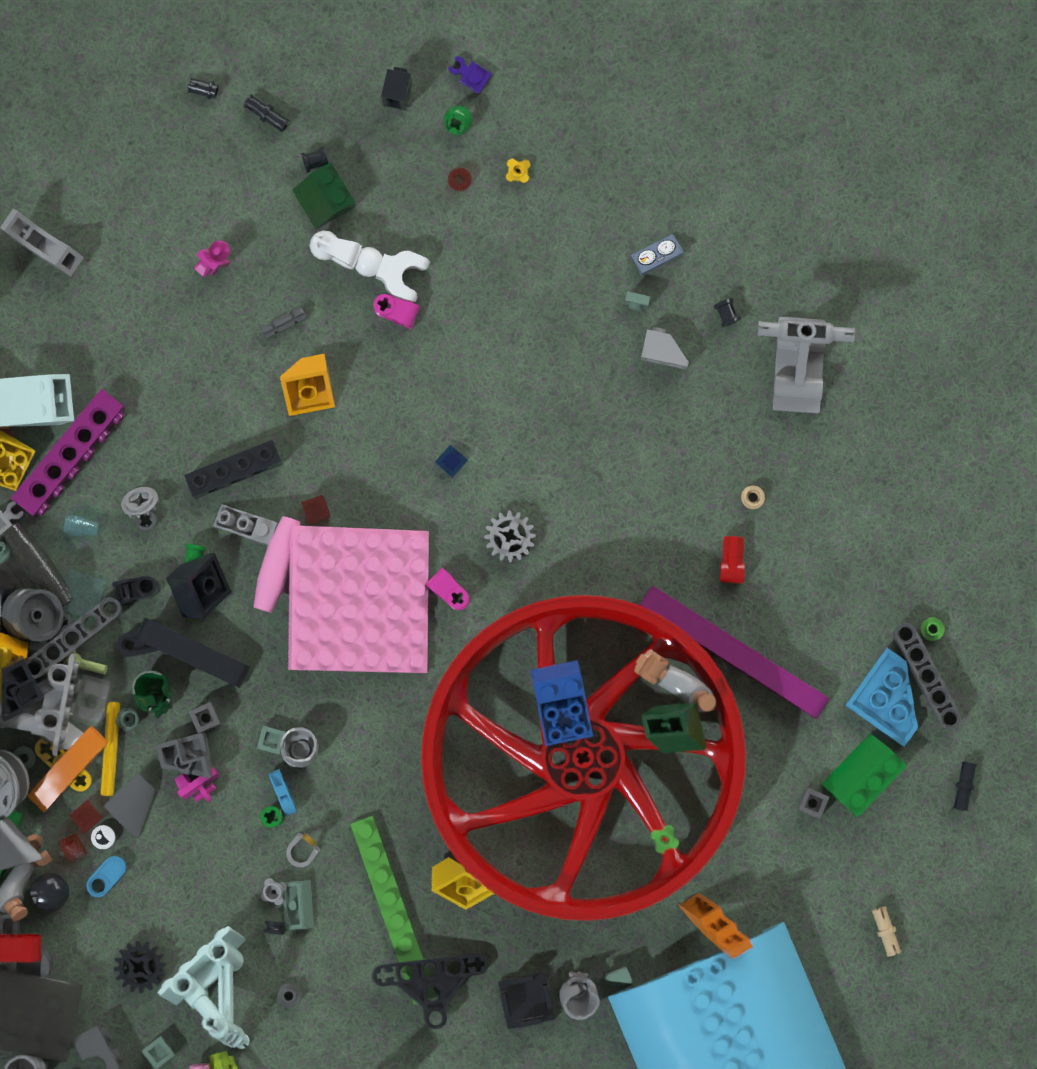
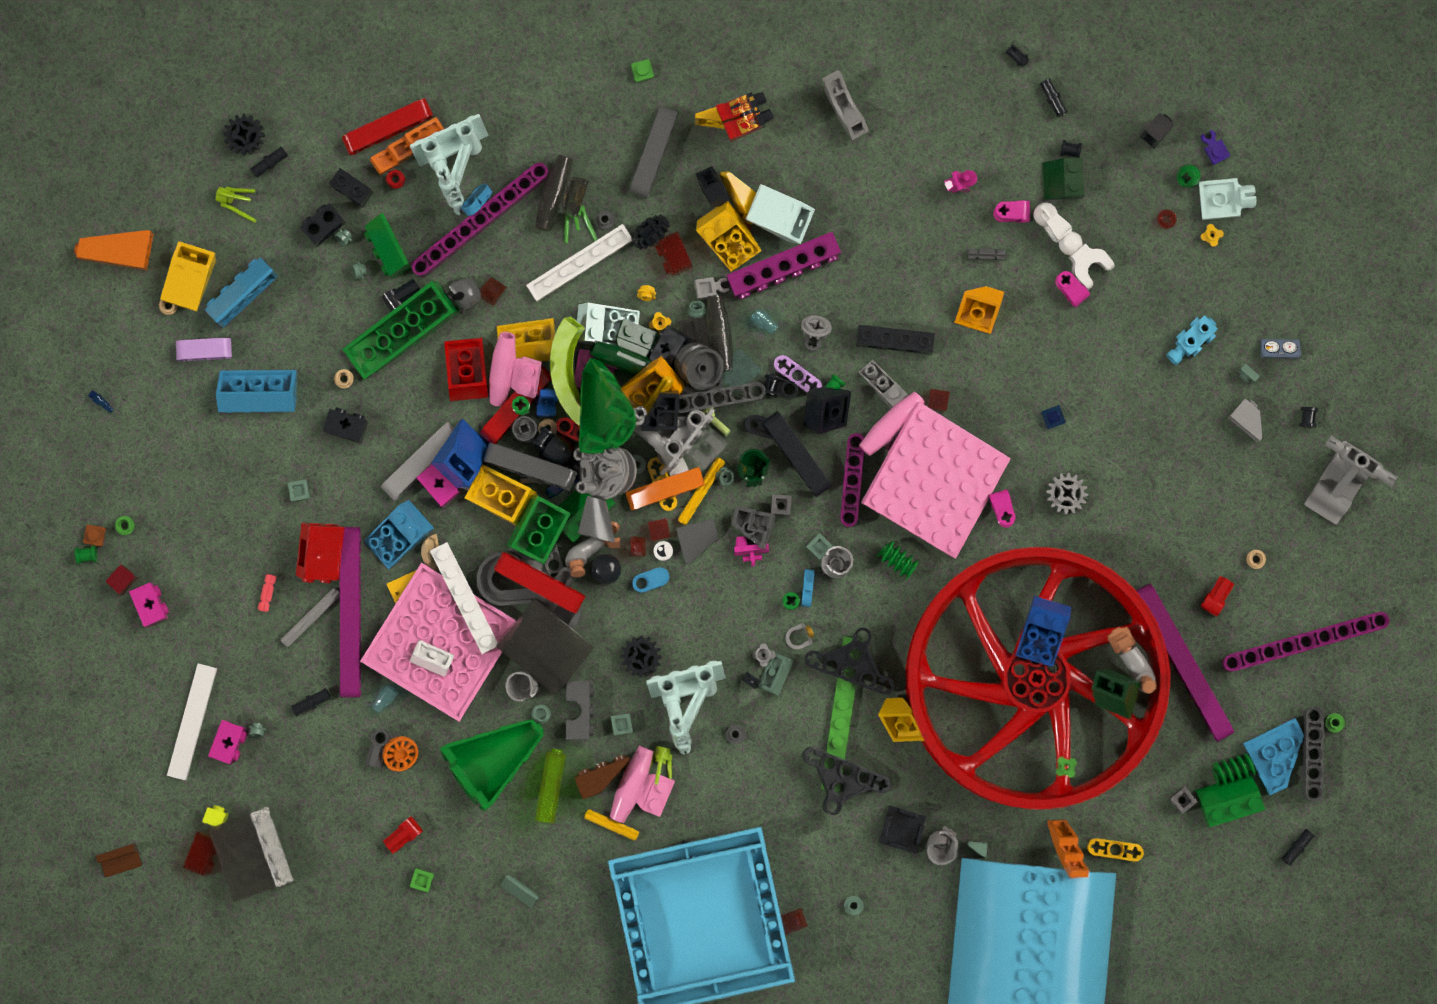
camera: 25 degrees right, 0 degrees up
(132, 557) = (782, 371): none -> lavender beam
(268, 660) = (849, 489): none -> magenta beam
(291, 259) = (1015, 211): none -> dark pink piece
(363, 850) = (843, 659): none -> black beam
(364, 708) = (898, 560): none -> green piece
(510, 123) = (1225, 198): none -> light aqua plate
(560, 288) = (1197, 335): none -> medium azure brick
(788, 896) = (1130, 846): none -> yellow beam
(849, 739) = (1233, 768): none -> green piece
(863, 552) = (1313, 636): none -> magenta beam
(886, 931) = (1186, 919): tan pin -> none

